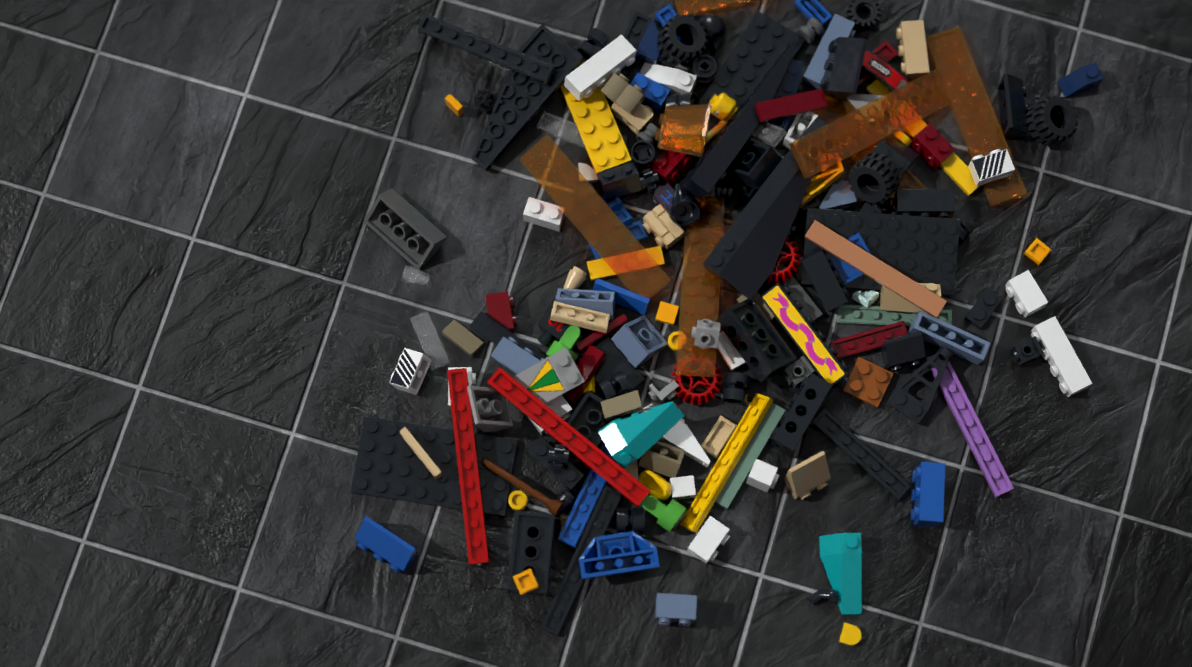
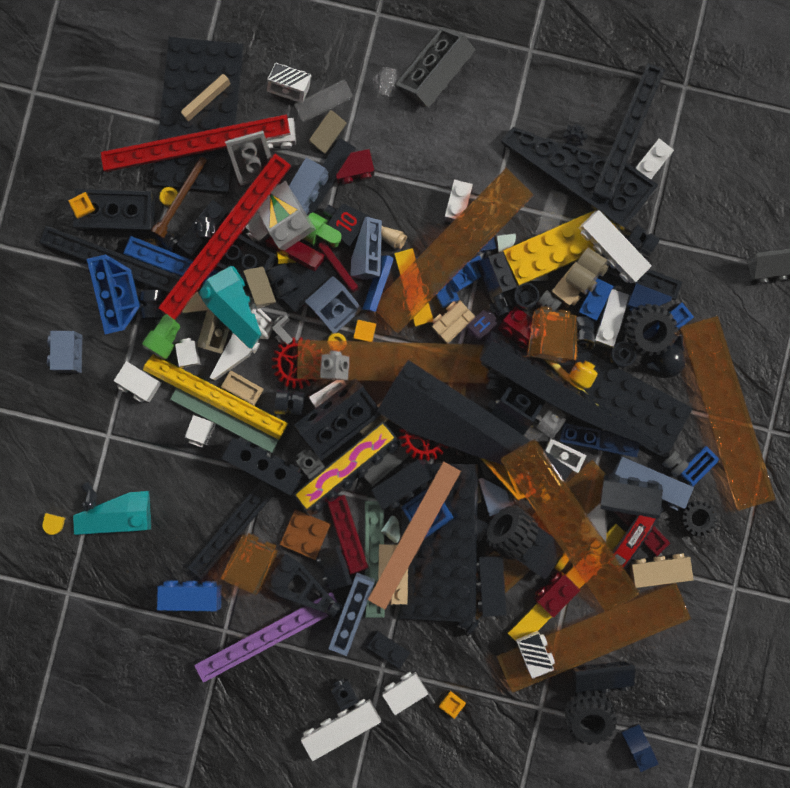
camera: 90 degrees right, 10 degrees up
(385, 545) = (116, 73): blue slope -> none
(454, 105) = (568, 105): light orange tile -> none
(514, 28) = (654, 159): none -> white brick
(580, 317) = (350, 242): tan tile -> none
(656, 484) = (188, 327): yellow tile -> none
(685, 208) = (468, 341): black piece -> none
(791, 105) = (584, 443): dark red tile -> none
(808, 476) = (201, 475): tan slope -> none
(897, 434) = (250, 563): none -> clear orange slope

